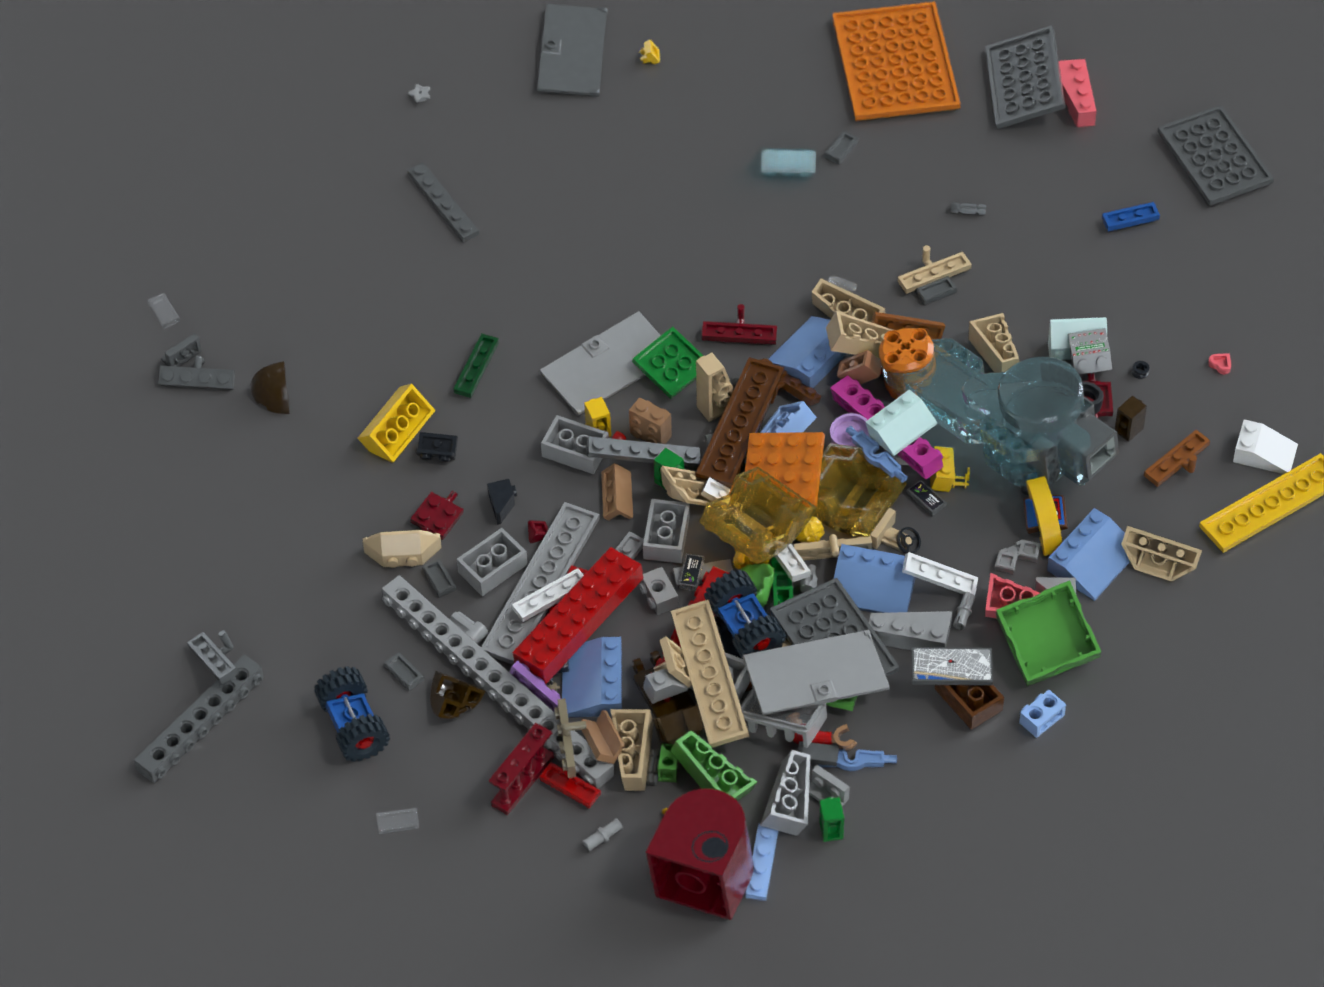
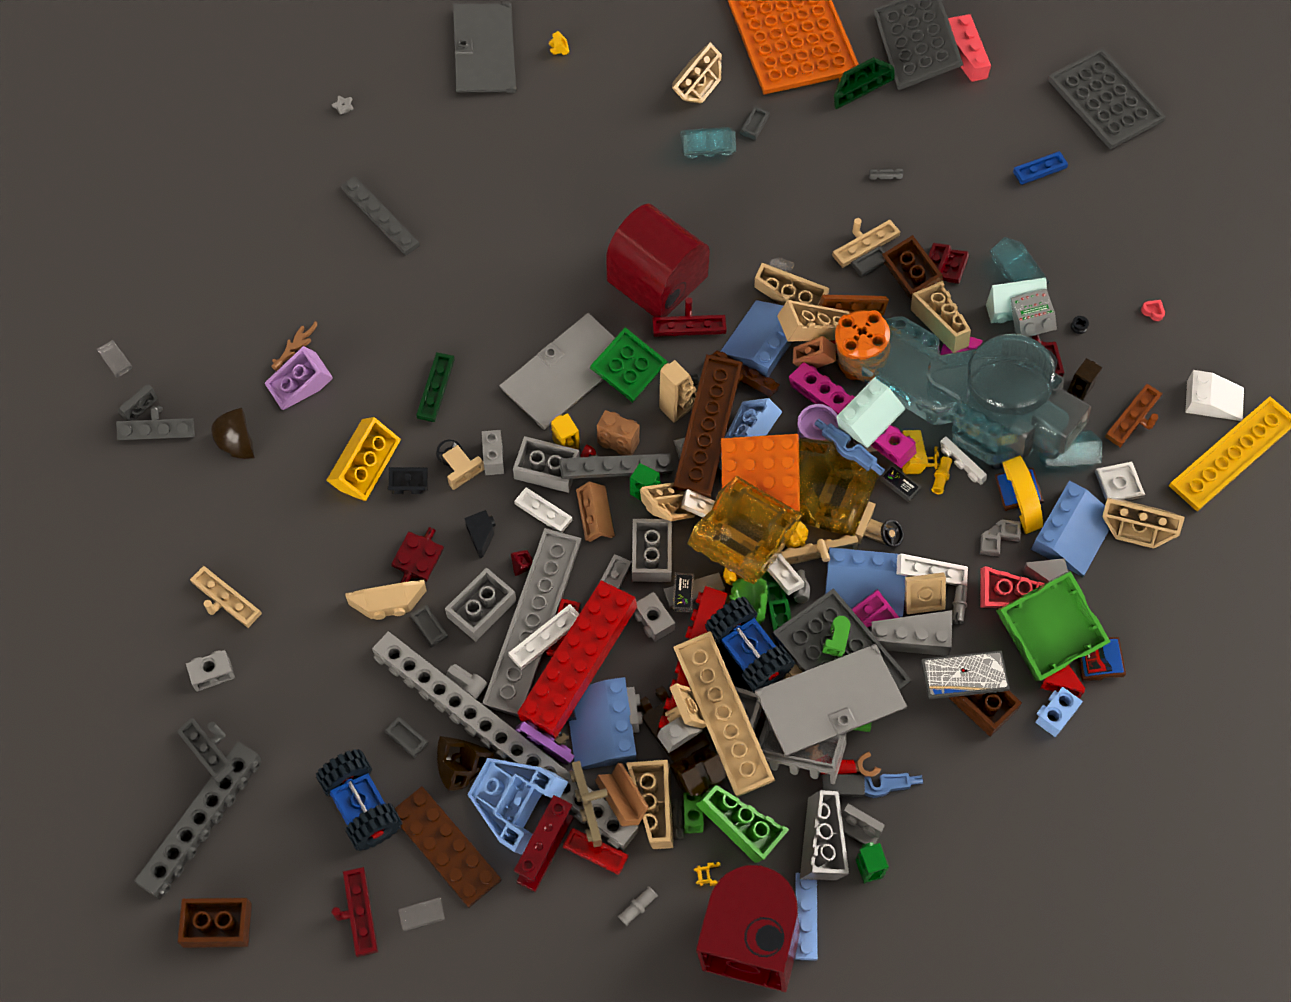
camera: 10 degrees left, 10 degrees up
(204, 803) = (214, 922): none -> reddish brown brick
(218, 600) = (221, 673): none -> light grey brick
(244, 530) = (224, 597): none -> tan plate
(339, 811) = (359, 912): none -> dark red plate
(342, 344) = (298, 378): none -> lavender slope
(346, 312) = (297, 344): none -> medium nougat piece
(429, 768) = (446, 847): none -> reddish brown plate
(493, 440) = (463, 467): none -> tan piece
(495, 725) = (507, 796): none -> light blue wedge
(524, 429) = (492, 452): none -> light grey brick
(565, 486) = (543, 510): none -> white plate
(625, 673) = (634, 701): none -> light grey plate
(712, 266) = (655, 260): none -> dark red brick
(790, 96) = (699, 75): none -> tan wedge
(829, 625) = (839, 635): none -> bright green leg
(876, 602) = (874, 609): none -> dark pink wing
(929, 593) = (925, 593): none -> tan tile
(958, 114) = (862, 80): none -> dark green wedge
(969, 494) = (941, 475): none -> yellow pin
(974, 295) = (911, 266): none -> reddish brown brick
(992, 482) = (962, 461): none -> white plate
(1013, 299) = (948, 261): none -> dark red slope
(1054, 683) = (1064, 678): none -> red slope
(1086, 302) = (1015, 261): none -> clear light blue slope
(1096, 674) = (1103, 662): none -> slope
(1108, 483) = (1084, 450): none -> clear light blue slope
(1150, 517) = (1120, 482): none -> white tile

